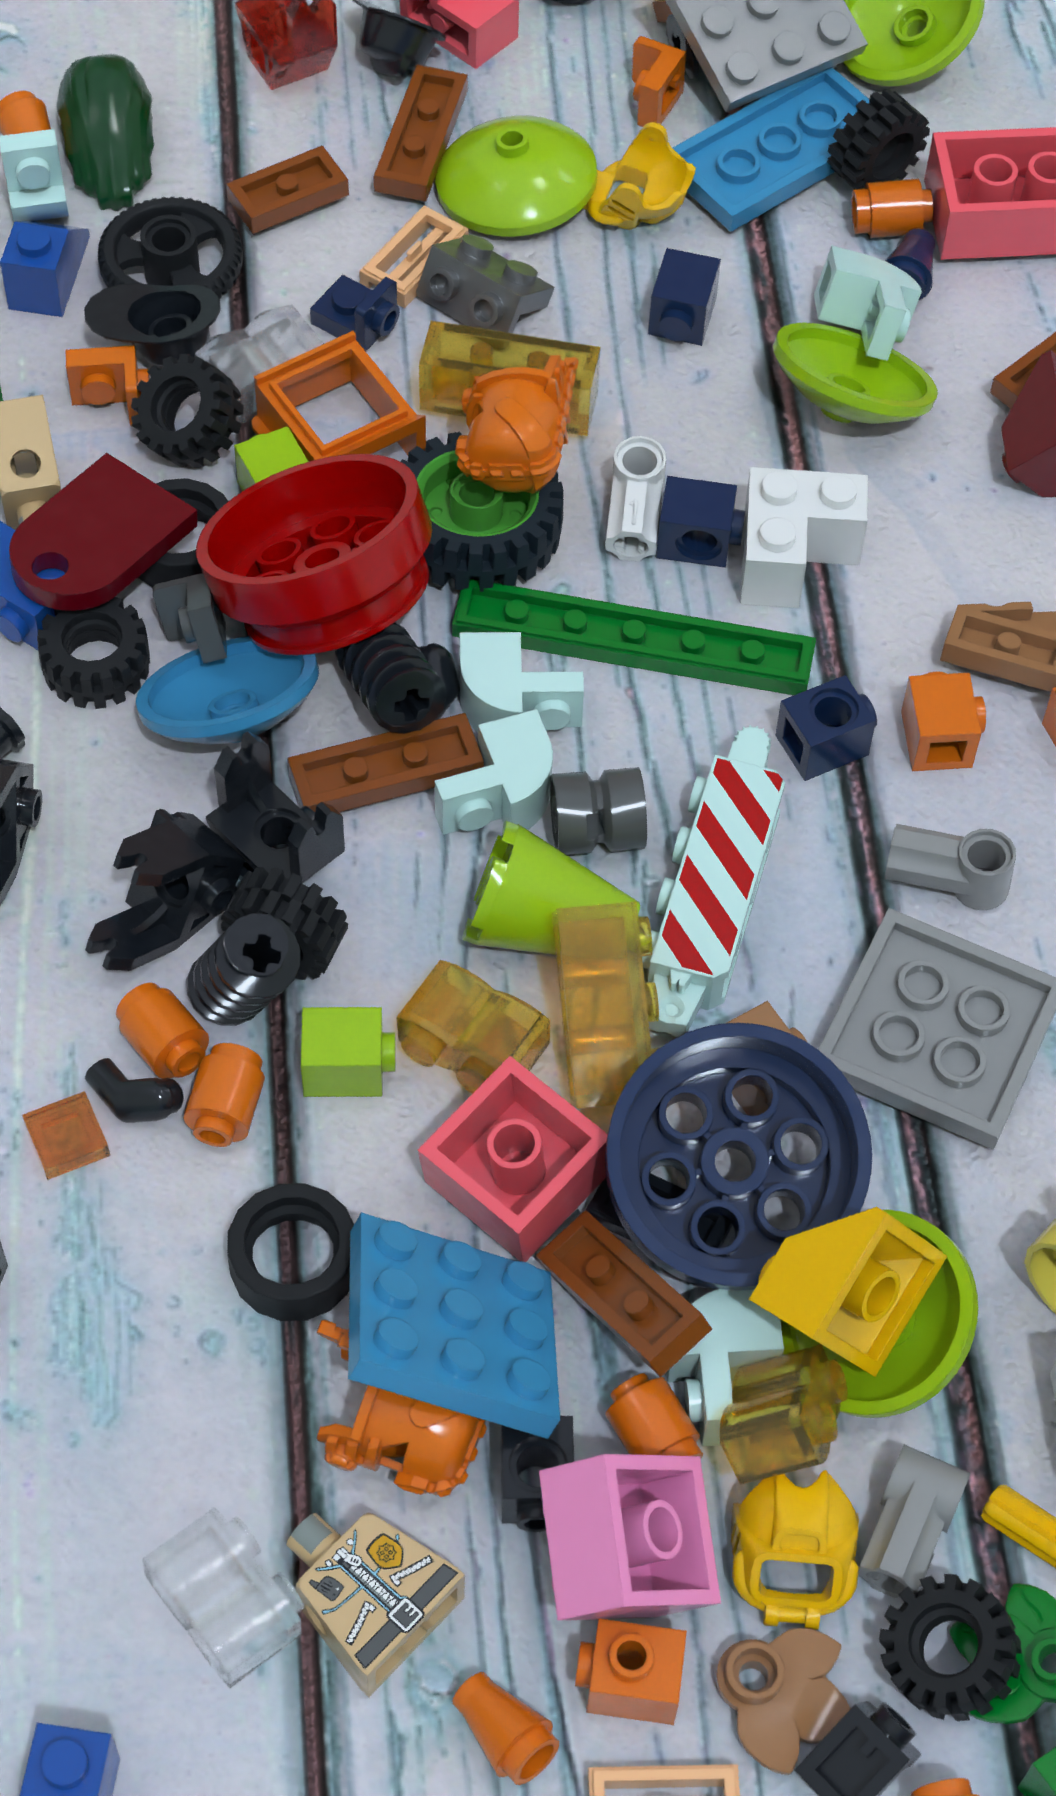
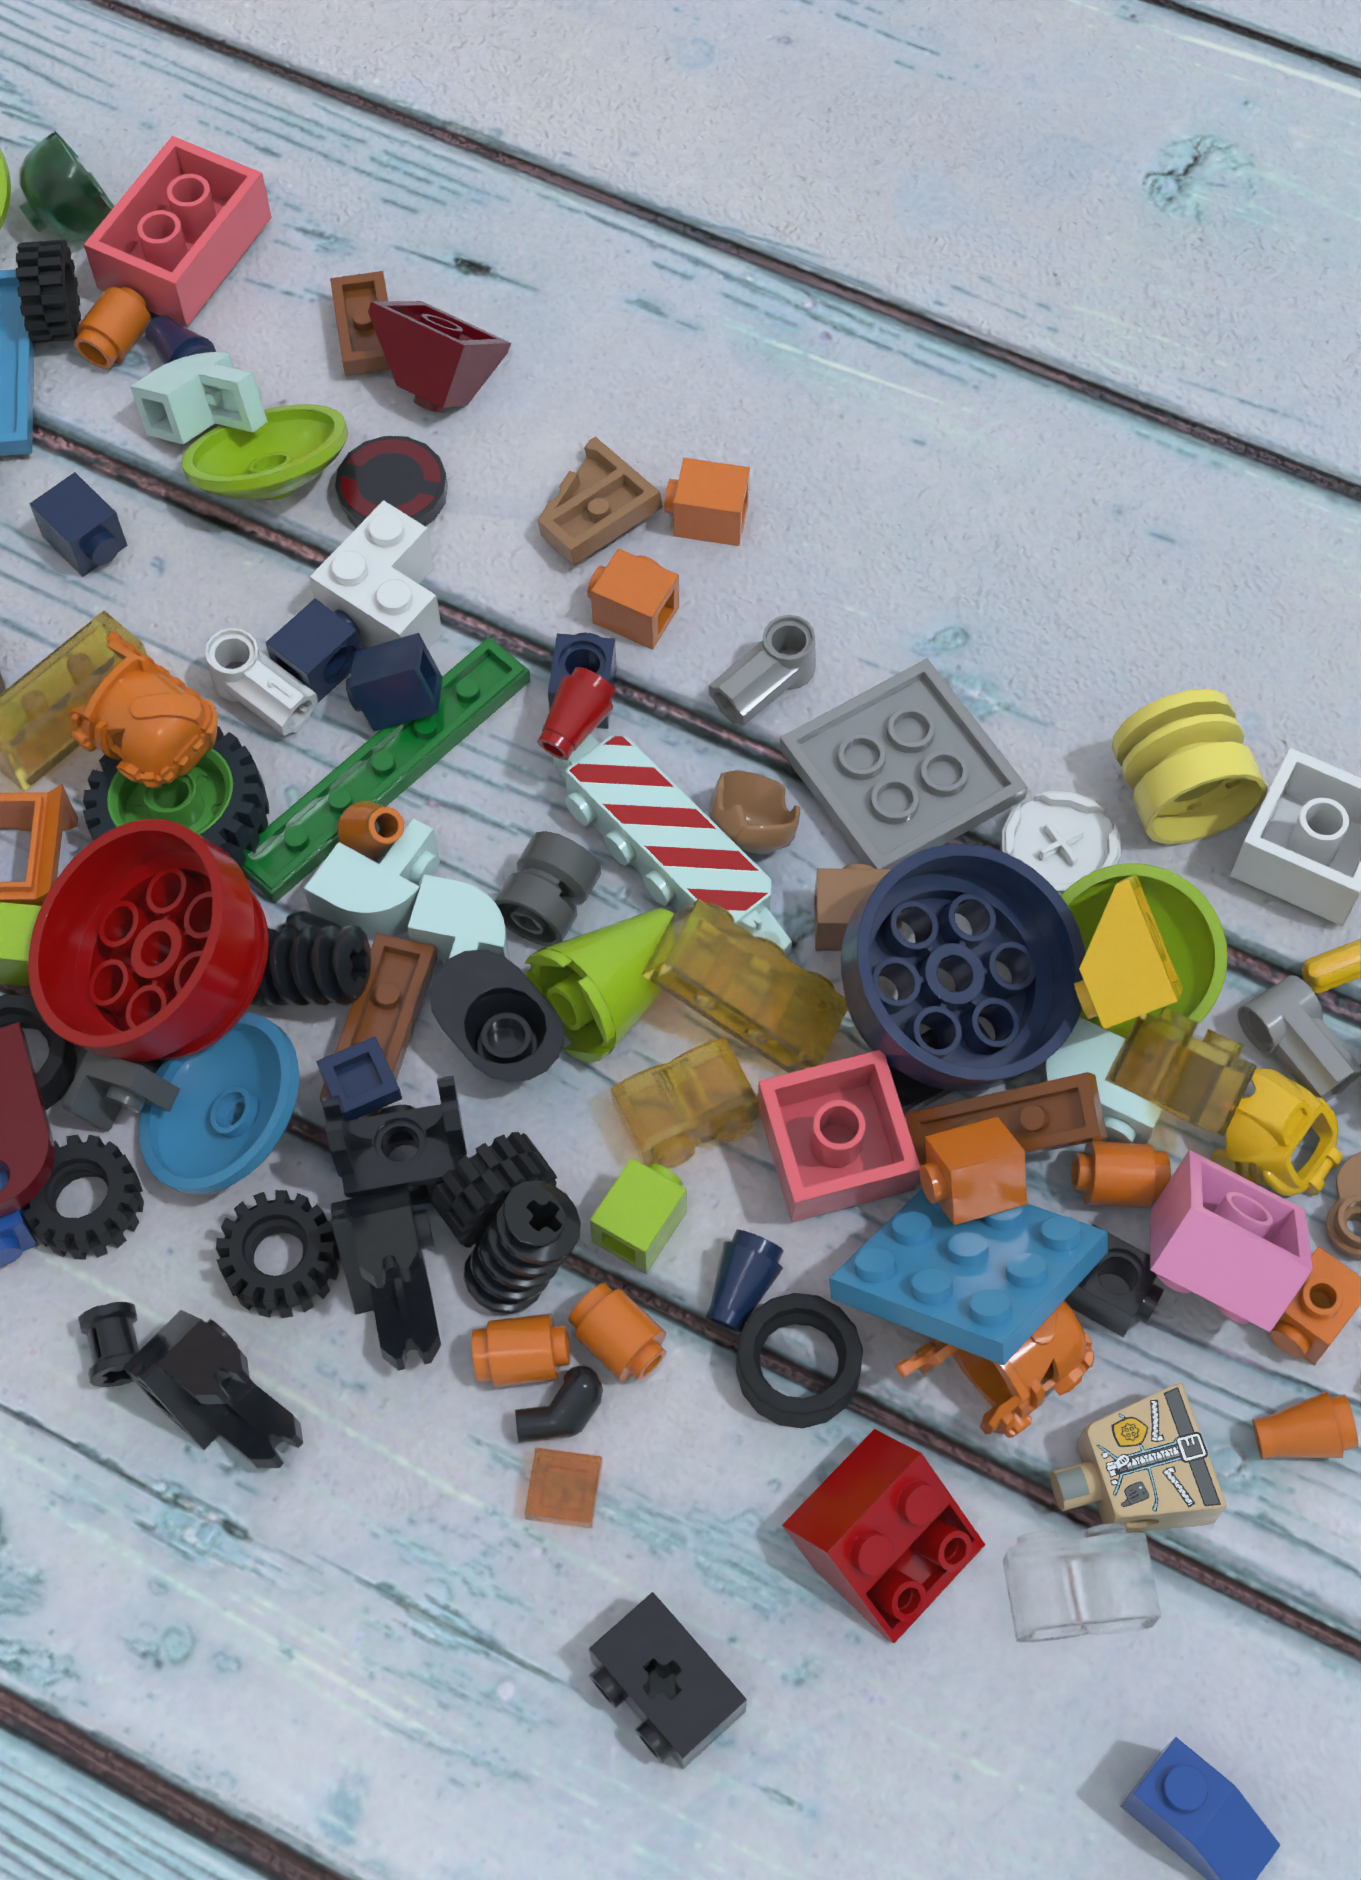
camera: 55 degrees left, 5 degrees up
(124, 783) = (265, 1219): none -> black tyre
(171, 1406) = (885, 1533): none -> red slope
(313, 768) = (360, 1078): none -> dark blue plate
(342, 1165) = (743, 1277): none -> dark blue cone
(441, 834) = (496, 1016): none -> black piece
(543, 1275) = (974, 1171): none -> orange brick
(575, 652) = (358, 830): none -> orange cone
(707, 589) = (394, 682): none -> dark blue brick
(769, 726) = (576, 711): none -> red cone
(793, 925) = (753, 812): none -> medium nougat hair
(912, 486) = (393, 471): none -> black tile
(972, 1199) = (1061, 837): none -> white tile
(988, 89) = (61, 191): none -> clear green cylinder

